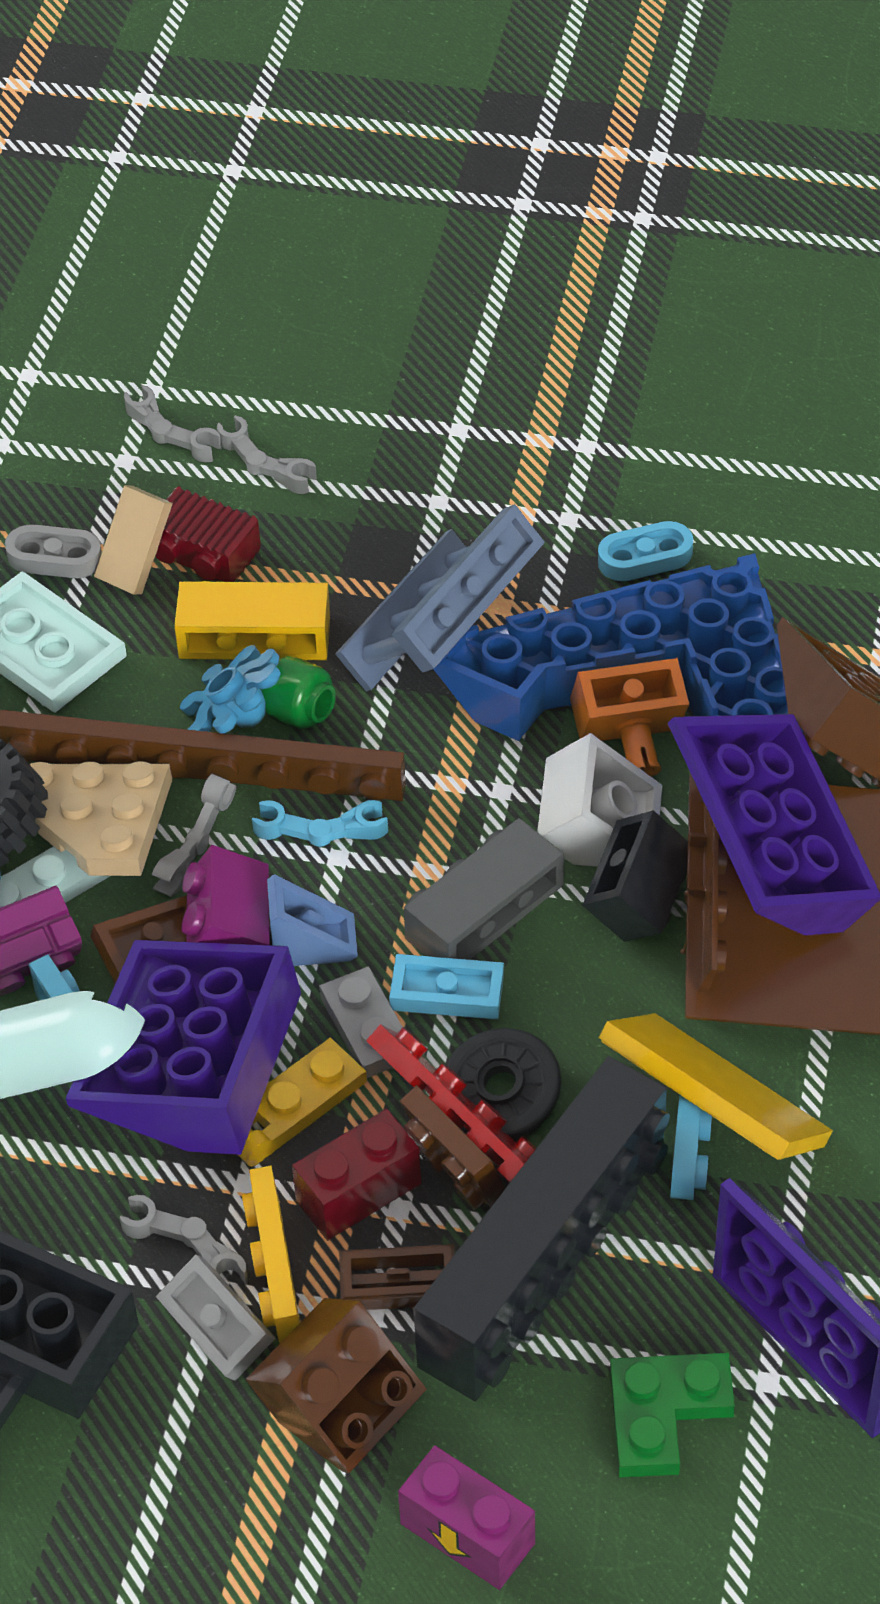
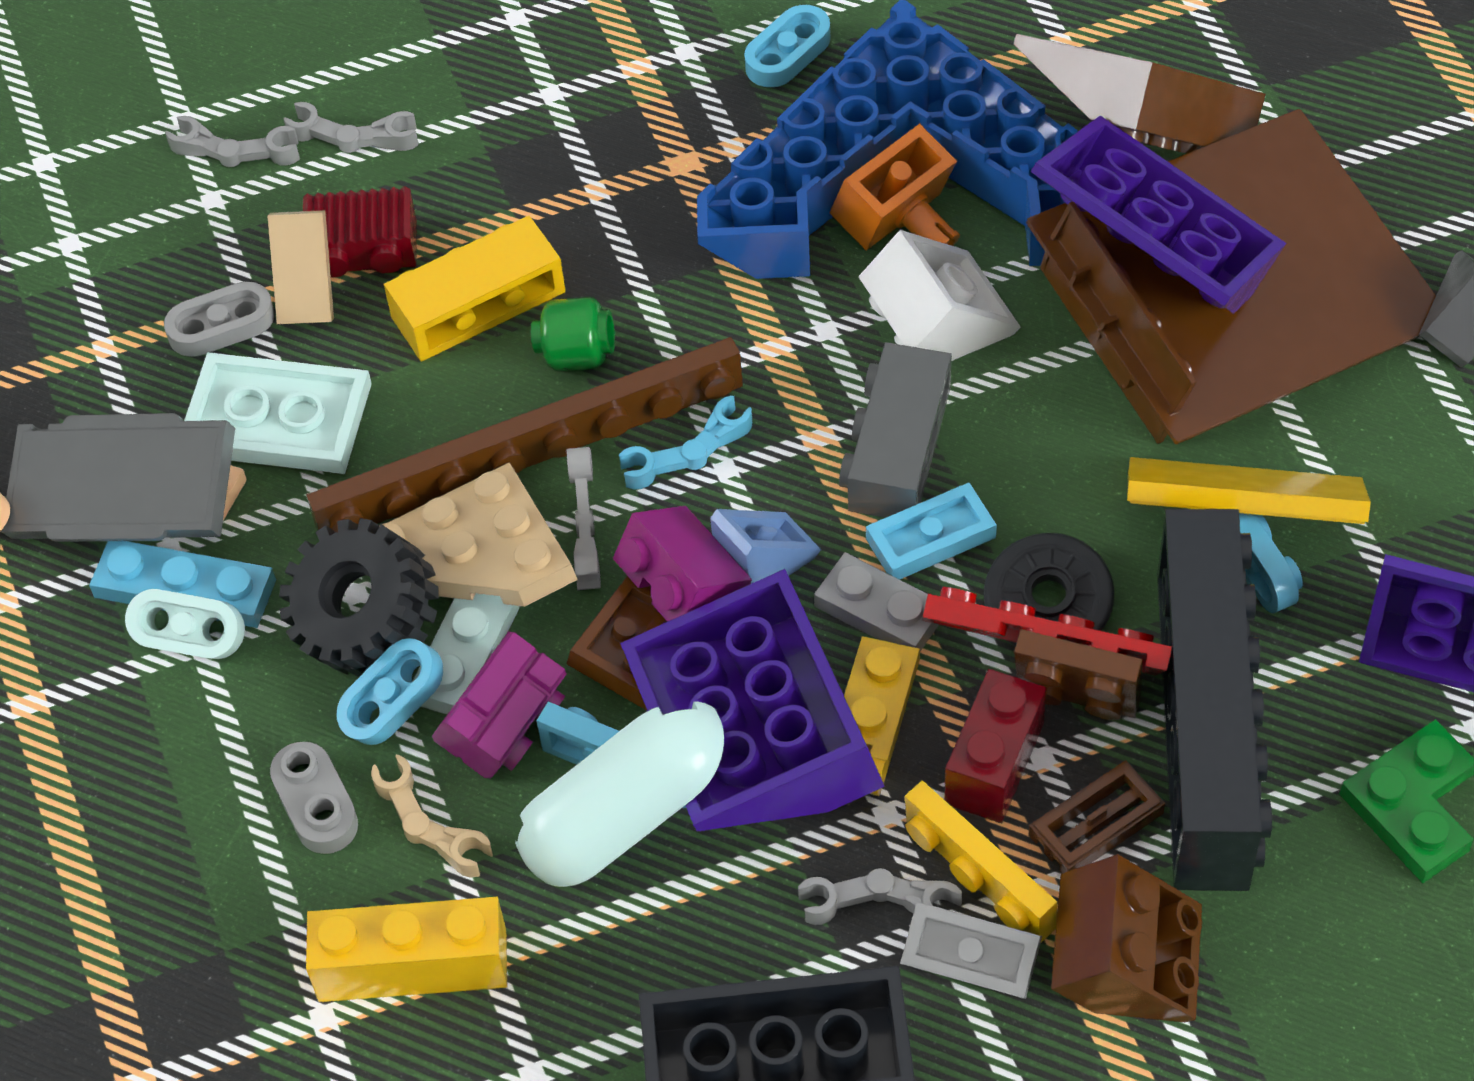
camera: 30 degrees left, 5 degrees up
(233, 692) = (518, 361): dark azure animal -> none
(440, 598) = (684, 183): sand blue fence -> none
(467, 1517) = (1342, 994): magenta brick -> none
(638, 876) = (1031, 340): black brick -> none

